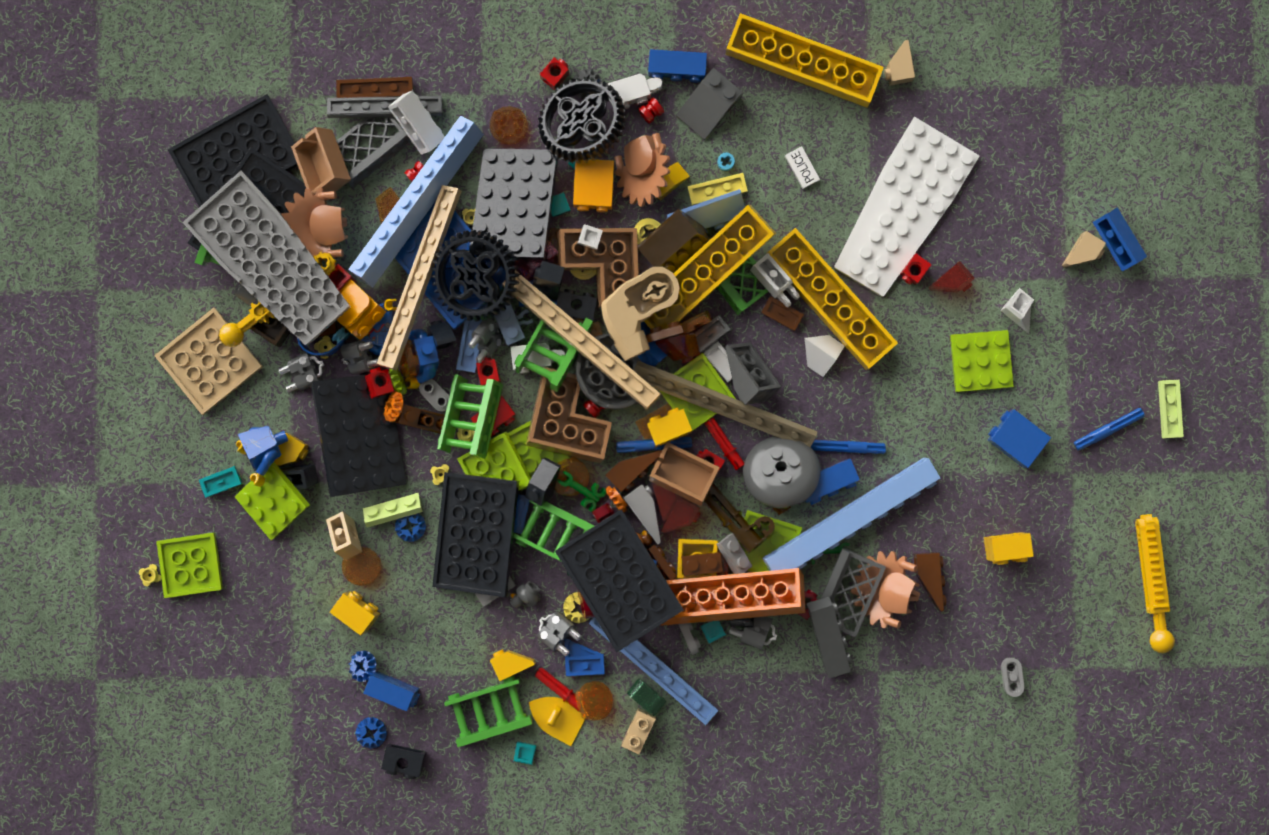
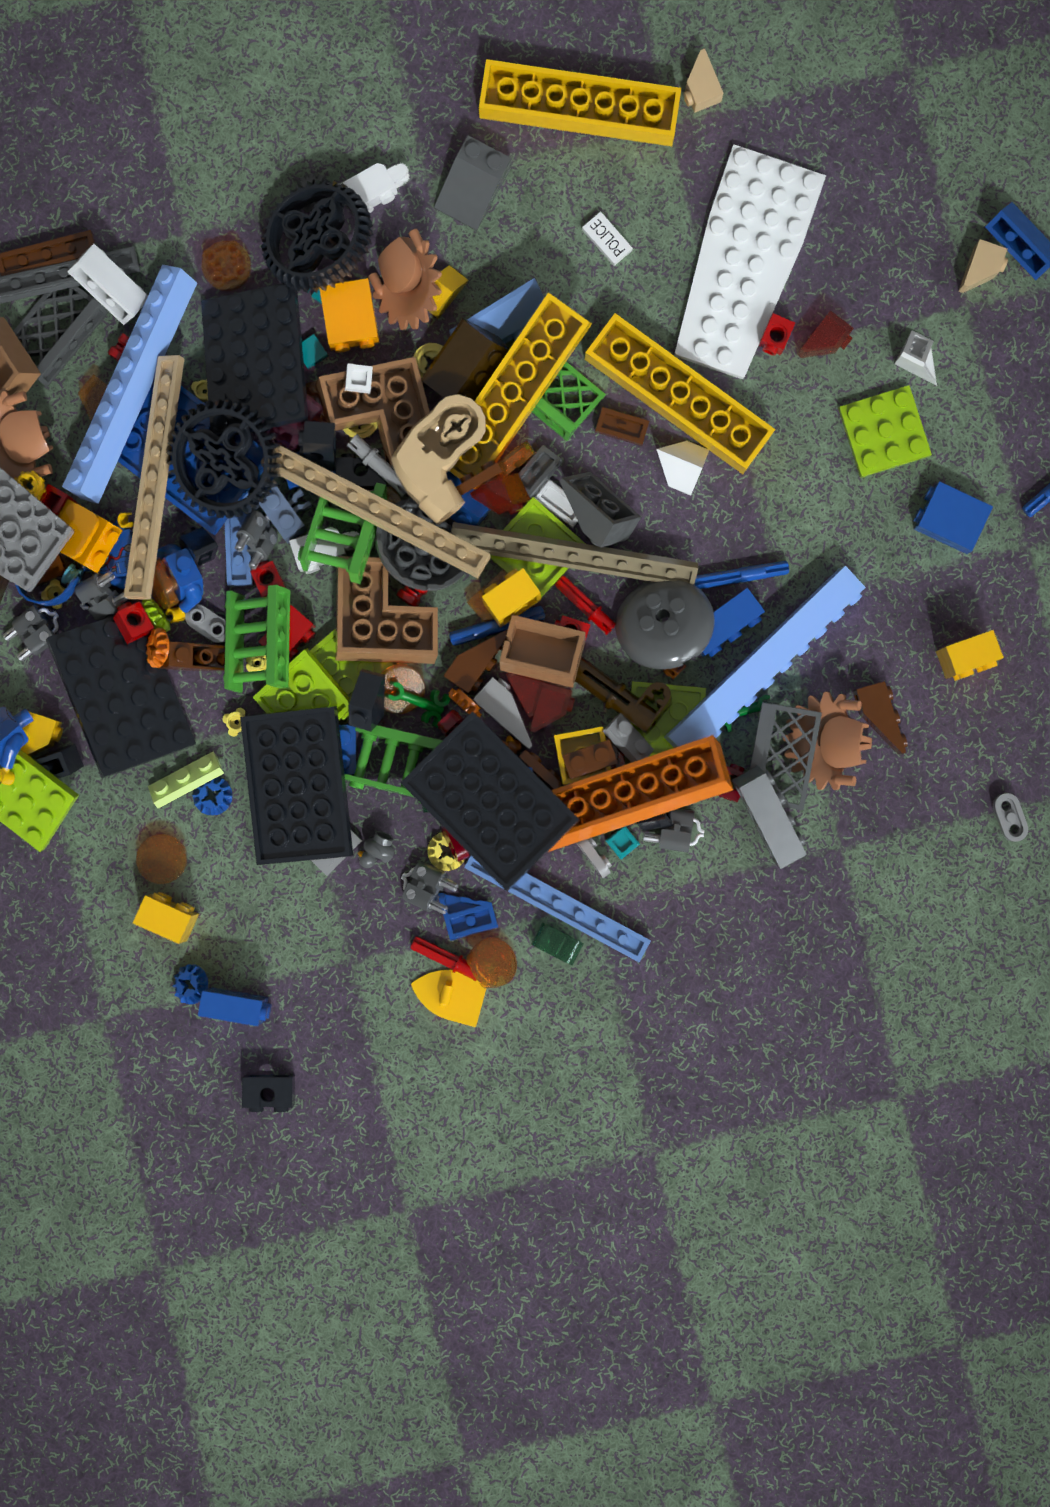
camera: 20 degrees left, 0 degrees up
(344, 535) = (130, 824): tan brick -> none
(379, 735) = (231, 1067): blue gear -> none
(484, 730) = (362, 1030): bright green fence -> none
(509, 663) = (375, 939): yellow slope -> none
(524, 753) = (419, 1048): teal tile -> none
(555, 81) = (269, 197): red brick -> none
(589, 301) = (376, 462): none -> light grey pin
(638, 731) = (556, 988): tan brick -> none
(651, 110) = (401, 207): red wheel -> none
(677, 65) = (422, 143): blue brick -> none
(715, 188) = (502, 286): light yellow plate -> none
(723, 156) = (505, 246): medium azure bush -> none
(774, 279) = (602, 384): white hinge -> none

